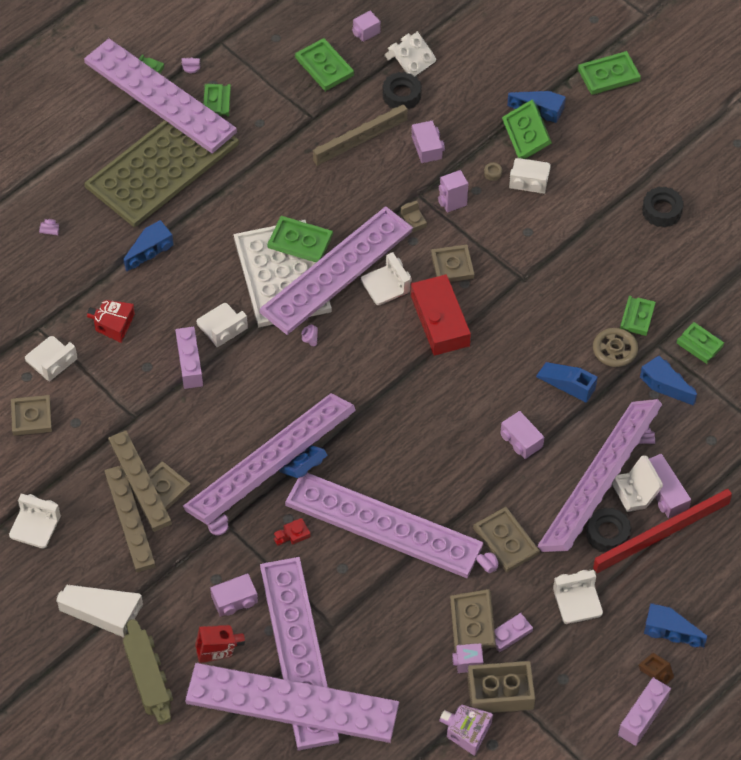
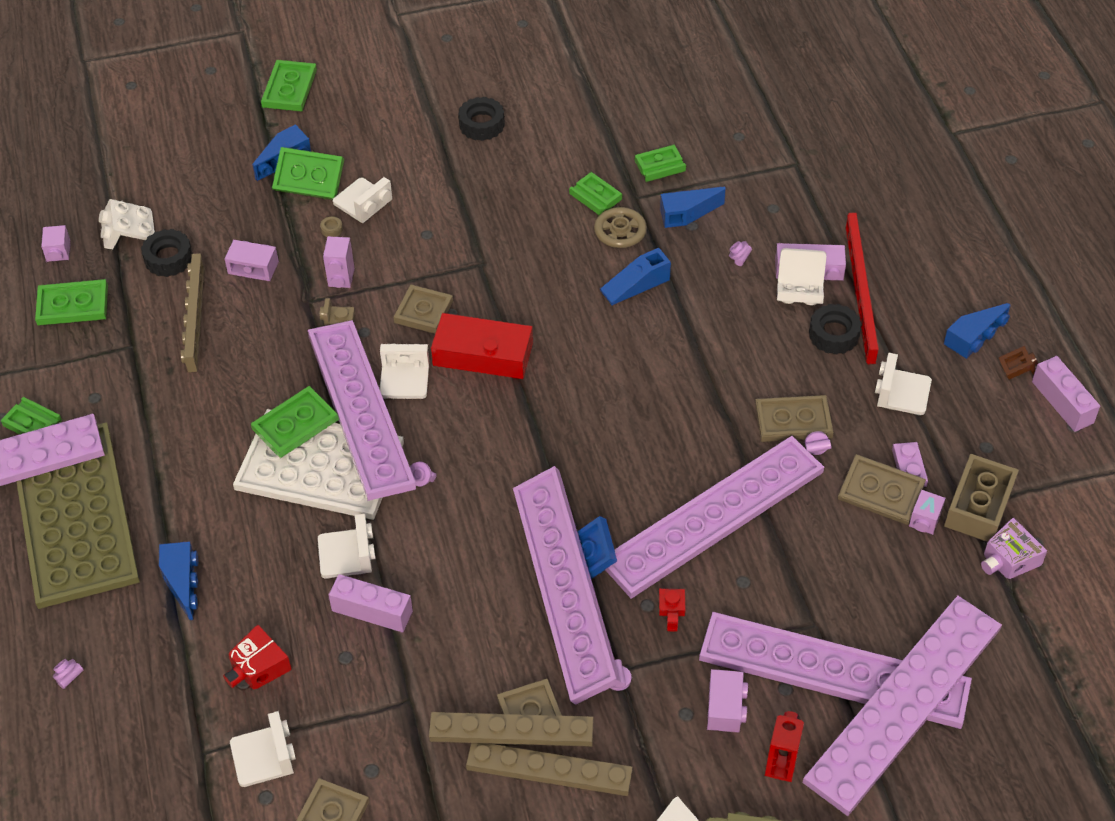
camera: 60 degrees left, 5 degrees down
(522, 435) = (678, 345): lavender brick -> none
(599, 476) = (773, 305): lavender plate -> none

